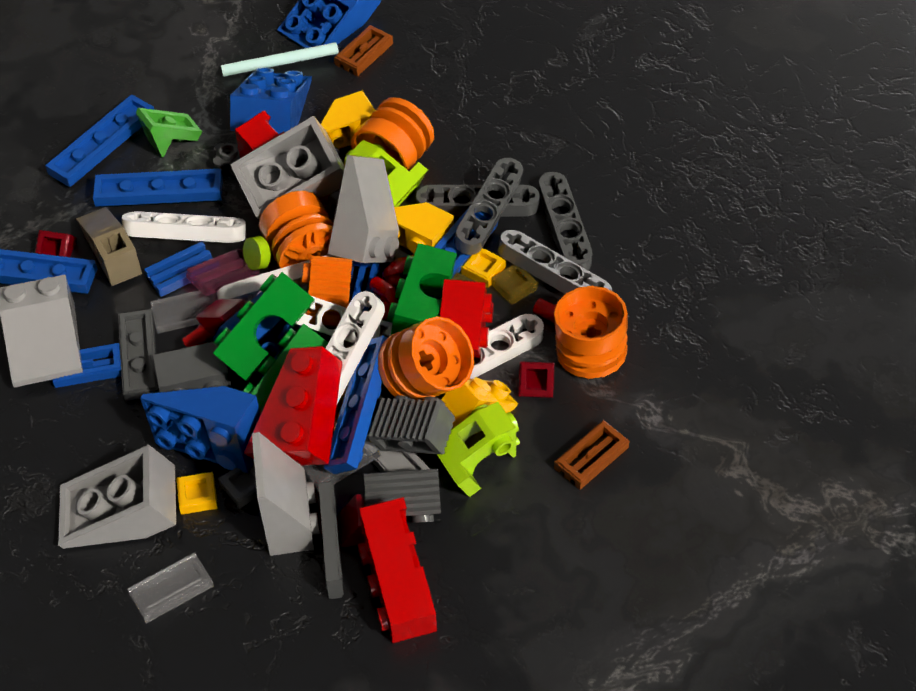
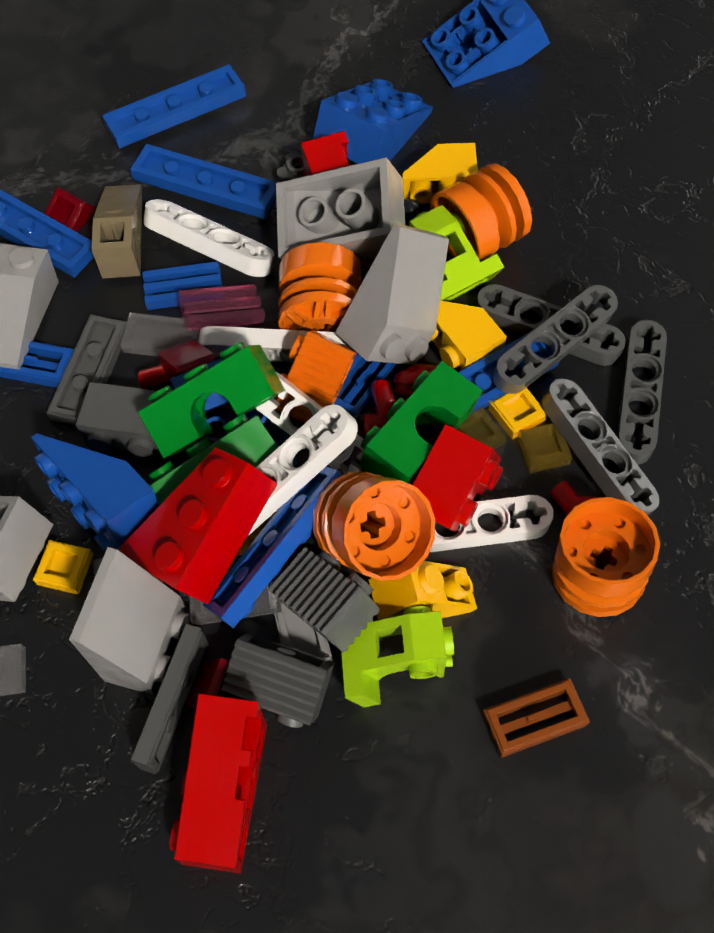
camera: 25 degrees right, 10 degrees up
(165, 126) = (245, 112): bright green slope -> none
(256, 253) = (264, 299): lime tile -> none
(280, 59) = (406, 75): light aqua bar -> none
(368, 51) = (508, 99): dark orange tile -> none
(536, 379) = (513, 585): dark red slope -> none

